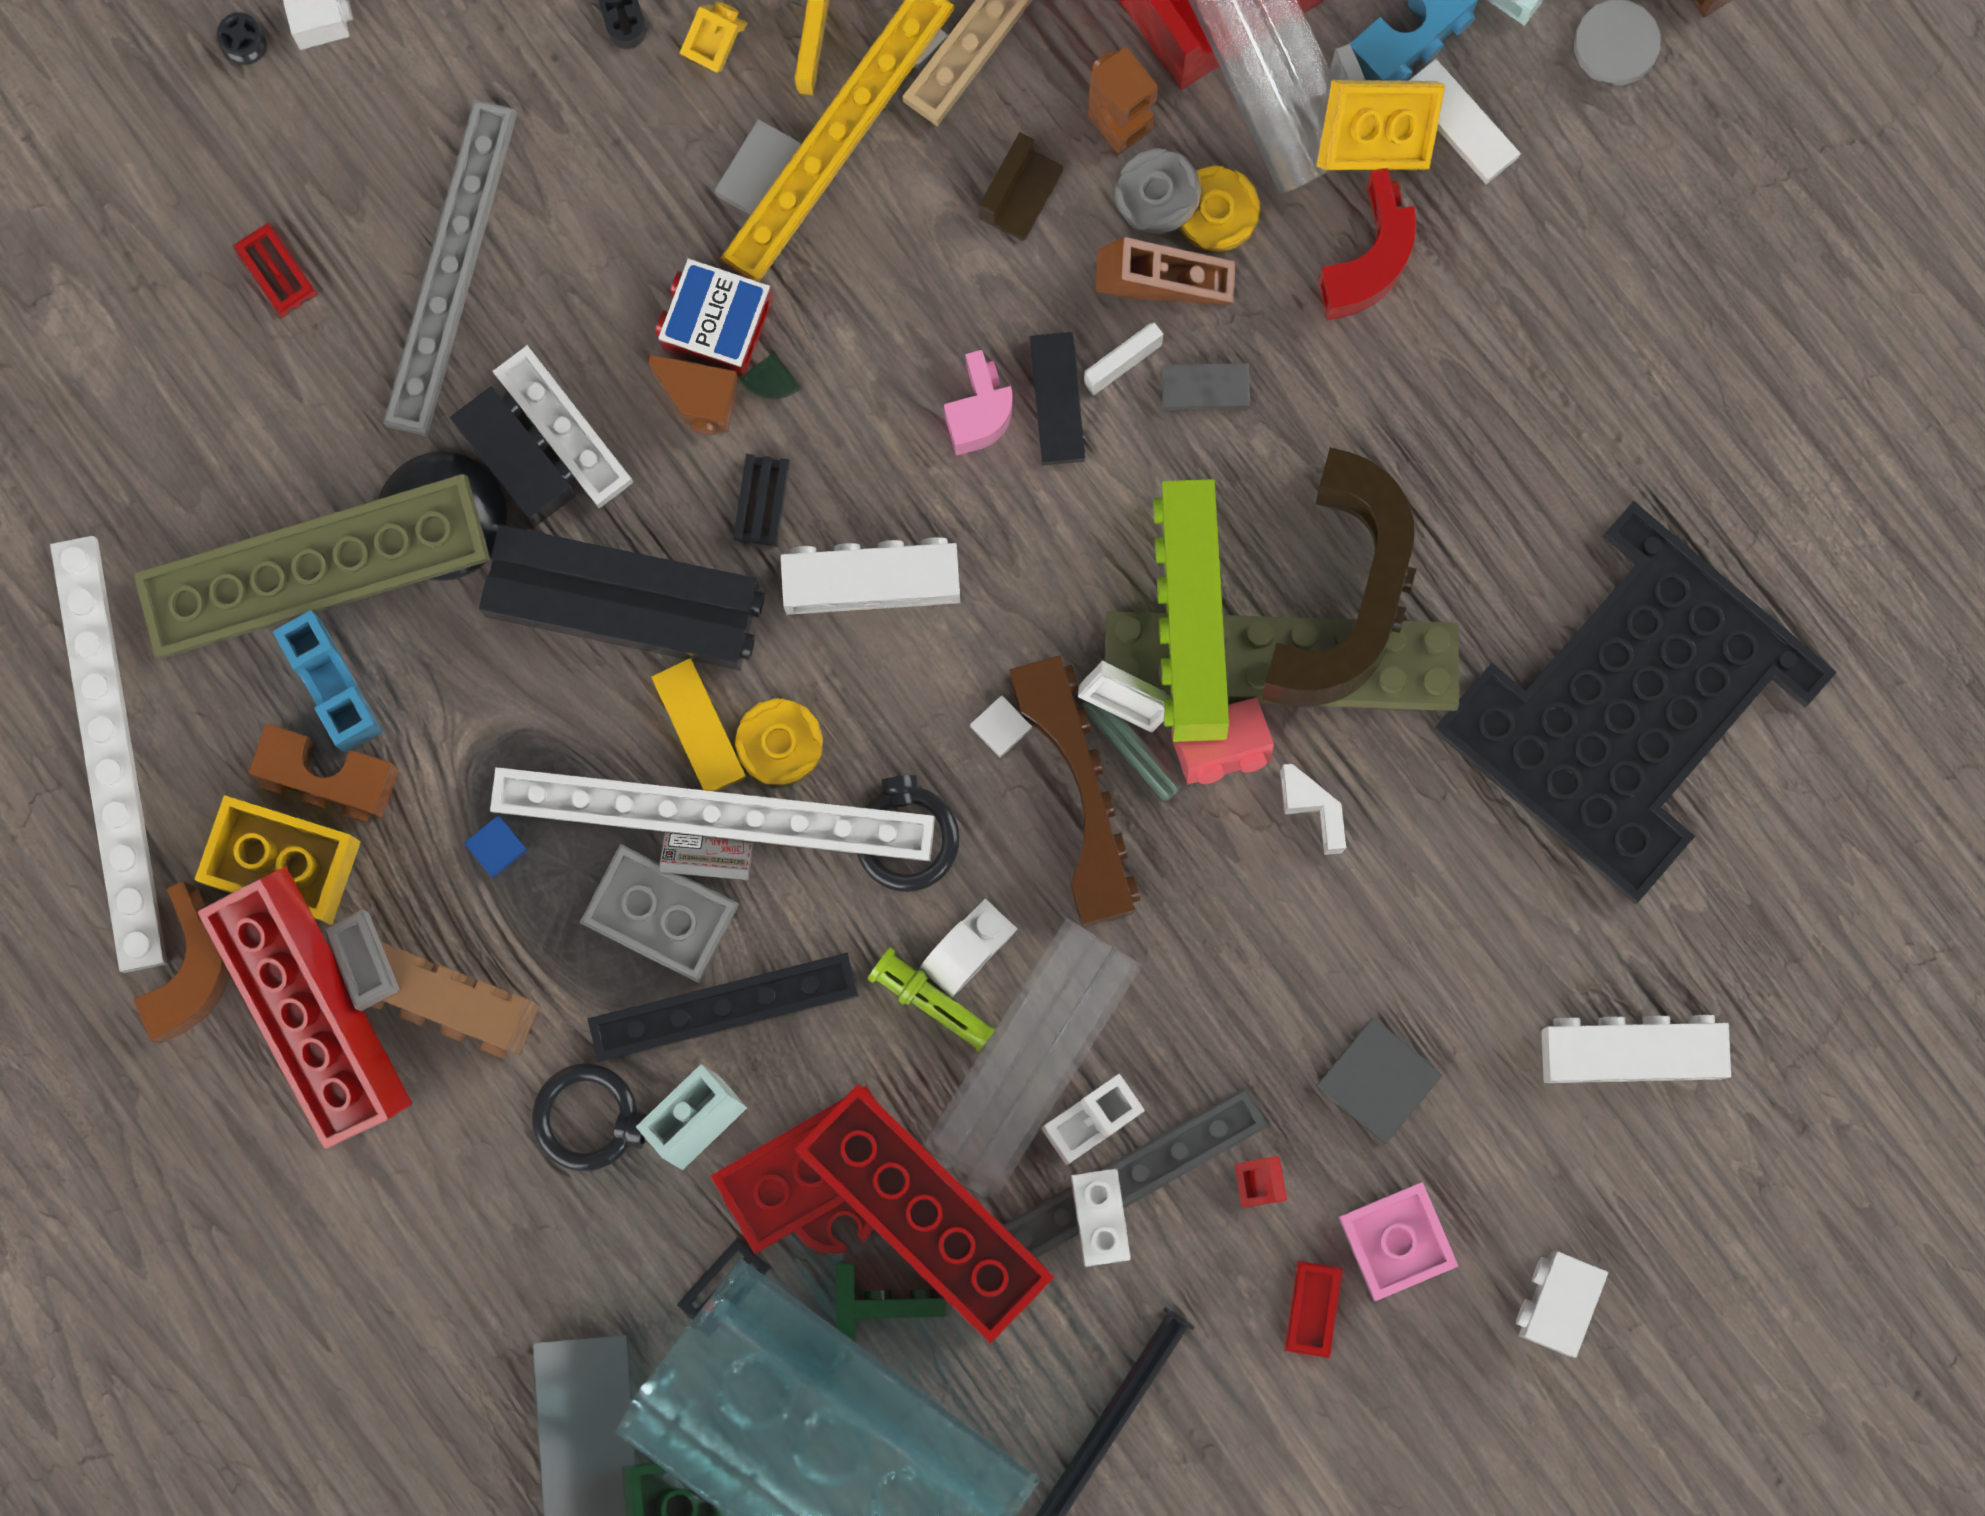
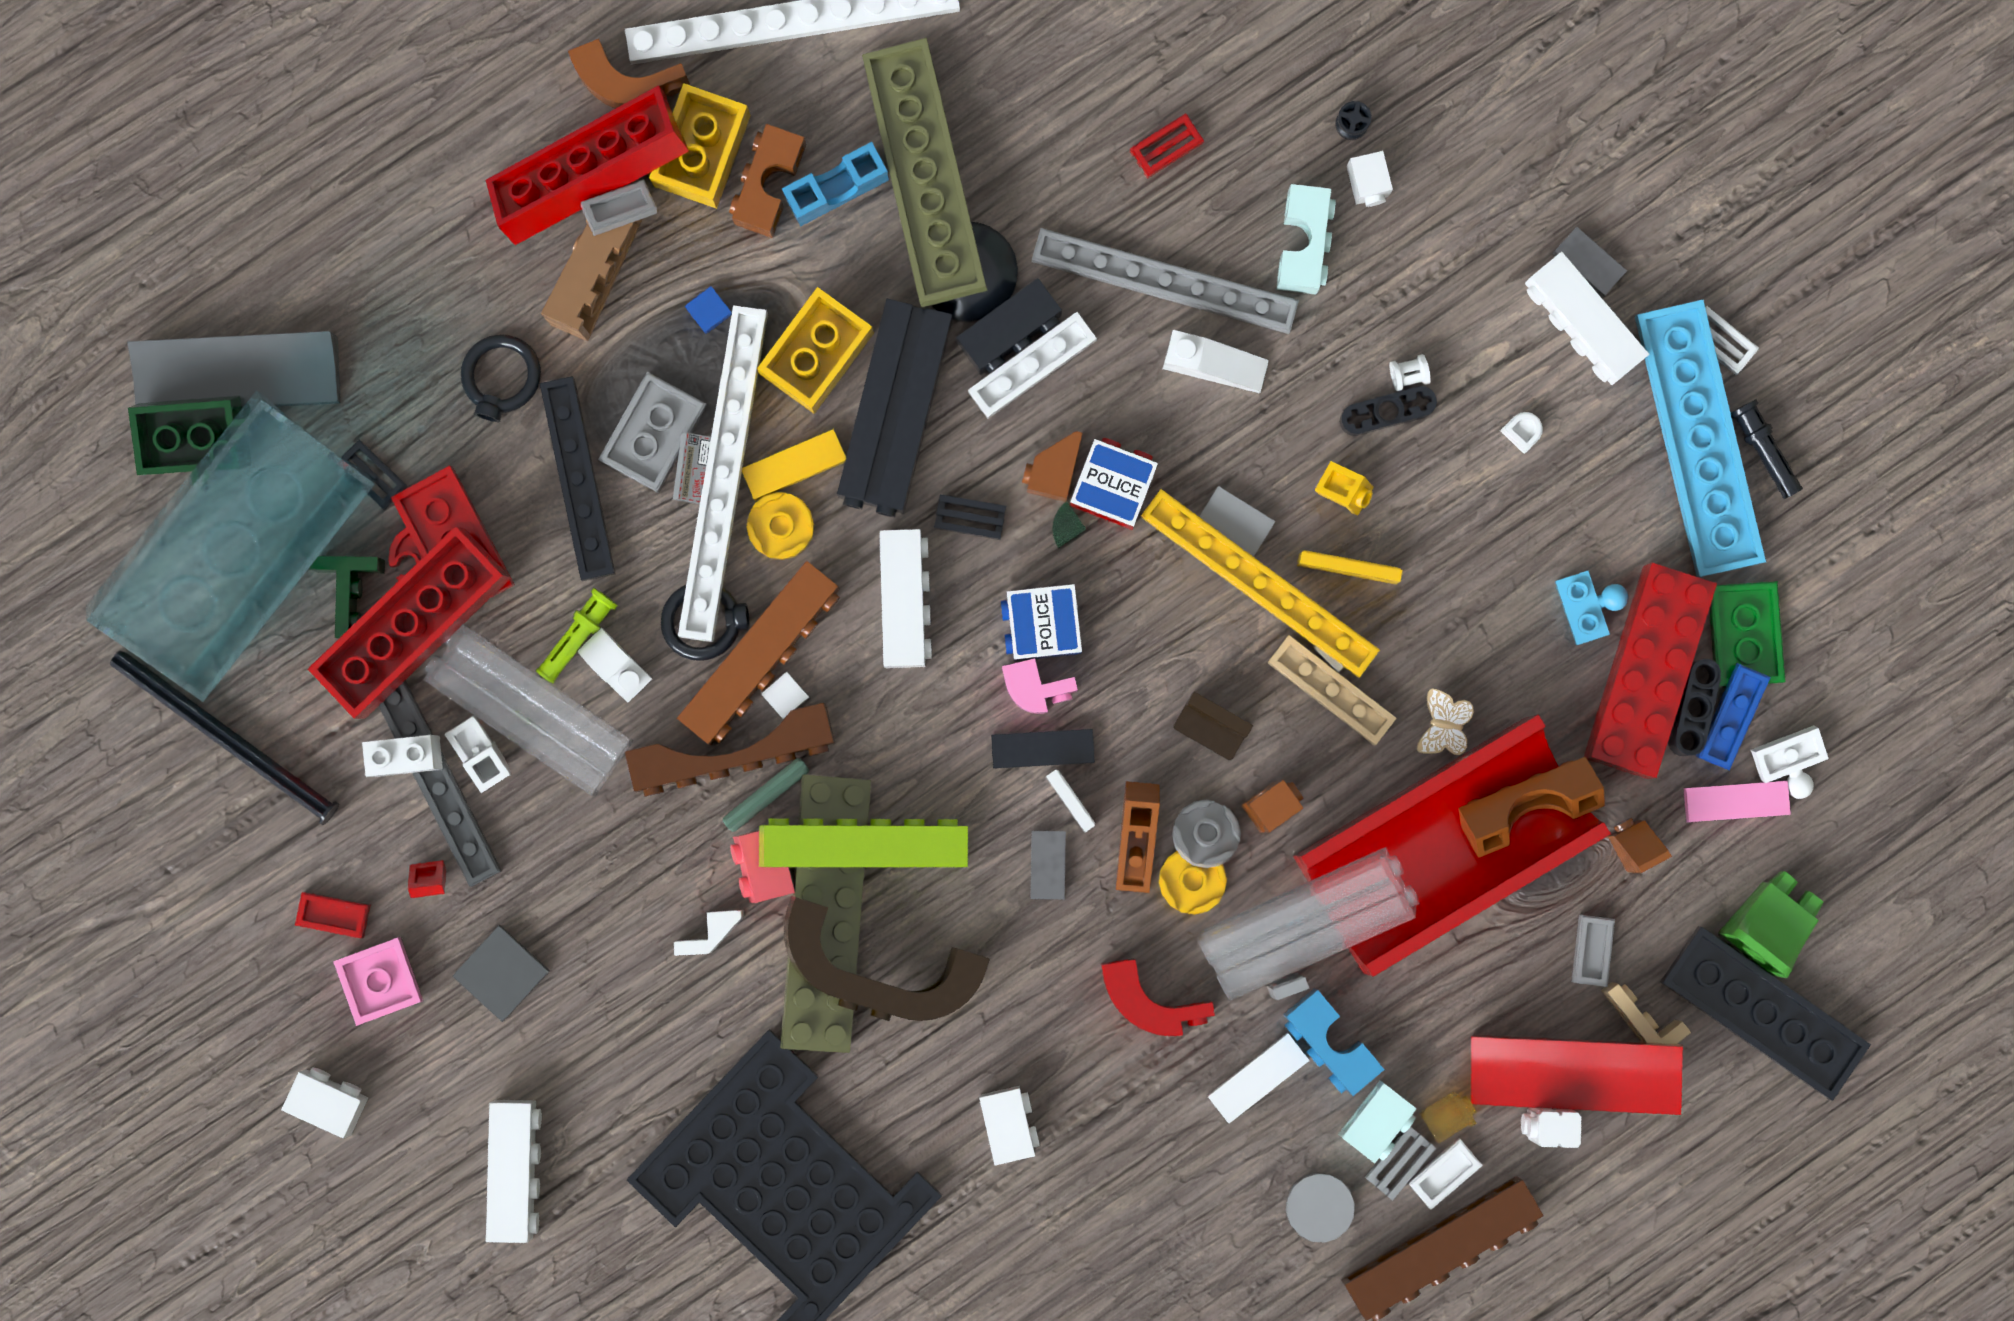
camera: 90 degrees right, 5 degrees up
(361, 84) = (1310, 210): none -> light aqua arch
(548, 698) = (815, 350): none -> yellow brick
(554, 202) = (1214, 362): none -> white slope
(691, 1117) = (493, 452): light aqua brick -> none
(896, 400) = (1042, 623): none -> piece
(948, 759) = (758, 654): none -> dark orange brick
(1124, 696) = (800, 790): white tile -> none
(1380, 125) = (1246, 1011): yellow tile -> none
(1538, 421) = (1008, 1125): none -> white brick

